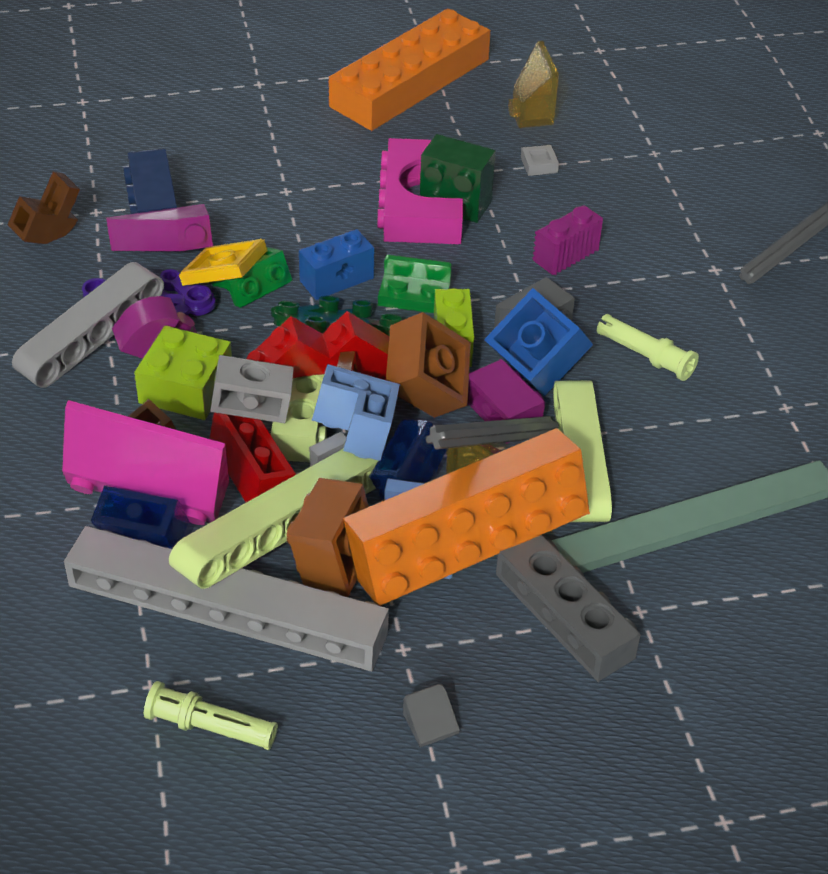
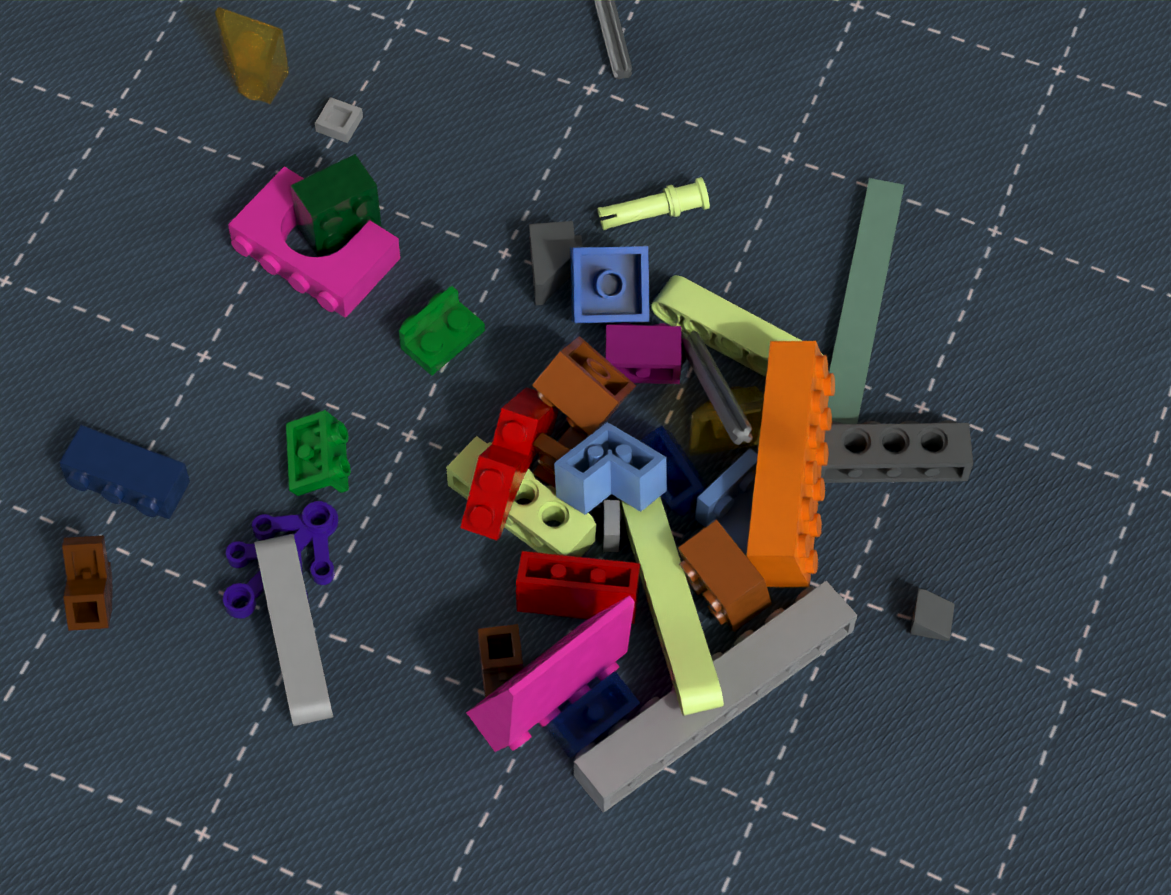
camera: 55 degrees left, 15 degrees up
(144, 321) = (343, 578): magenta brick -> none
(161, 230) = (201, 493): magenta slope -> none
(180, 371) = (421, 583): lime brick -> none
(190, 711) = (814, 783): yellowish green pin -> none
(223, 262) = (295, 469): yellow tile -> none
(252, 389) = (524, 539): light grey brick -> none
(327, 311) = (410, 450): dark green plant -> none
(336, 264) = (367, 376): blue brick -> none
(408, 69) = (115, 137): orange brick -> none
(454, 311) = (524, 333): lime brick -> none
(567, 239) = (480, 173): magenta brick -> none

